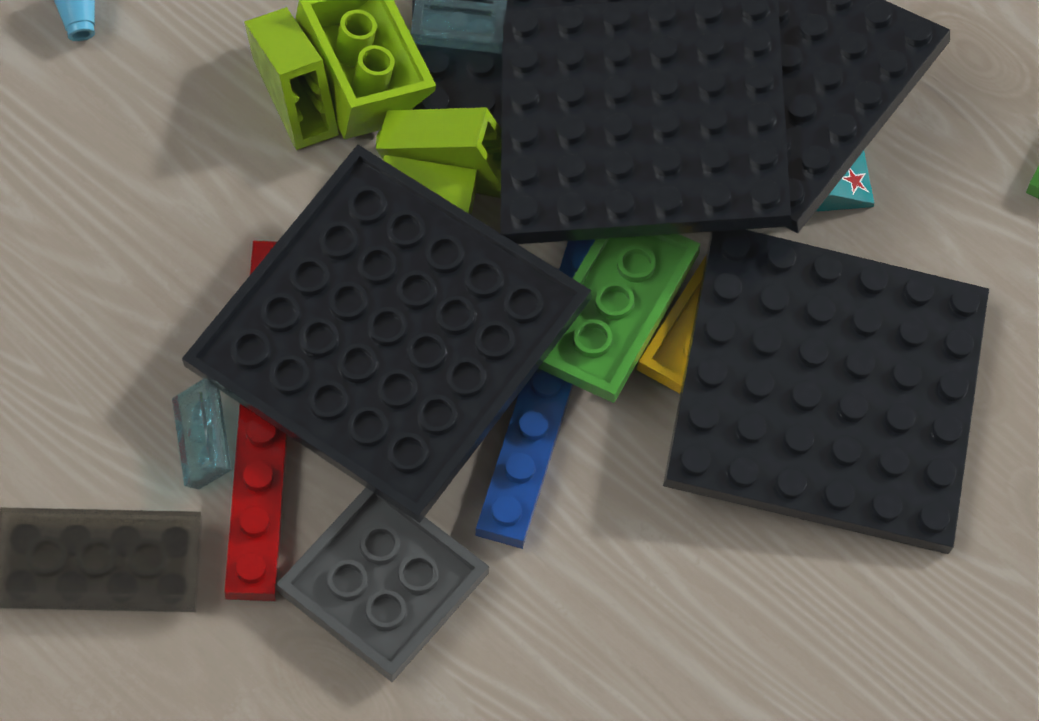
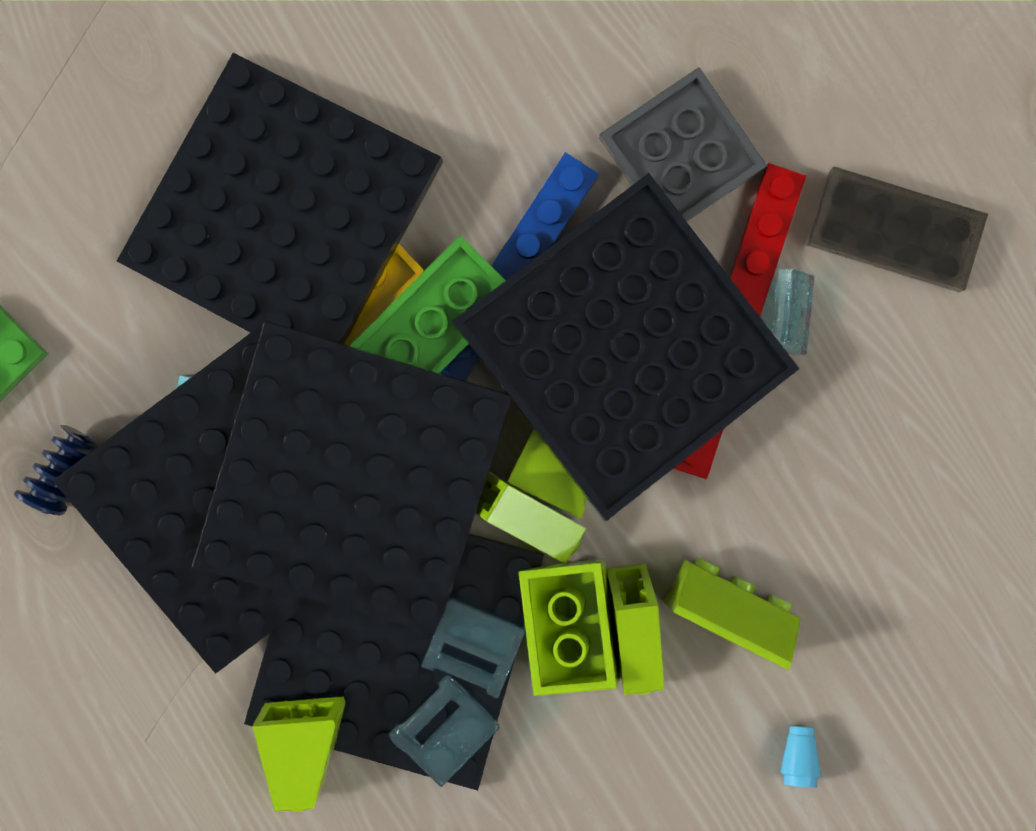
camera: 155 degrees left, 25 degrees up
(189, 107) = (734, 611): none -> lime slope
(958, 74) = (44, 493): none -> dark blue piece

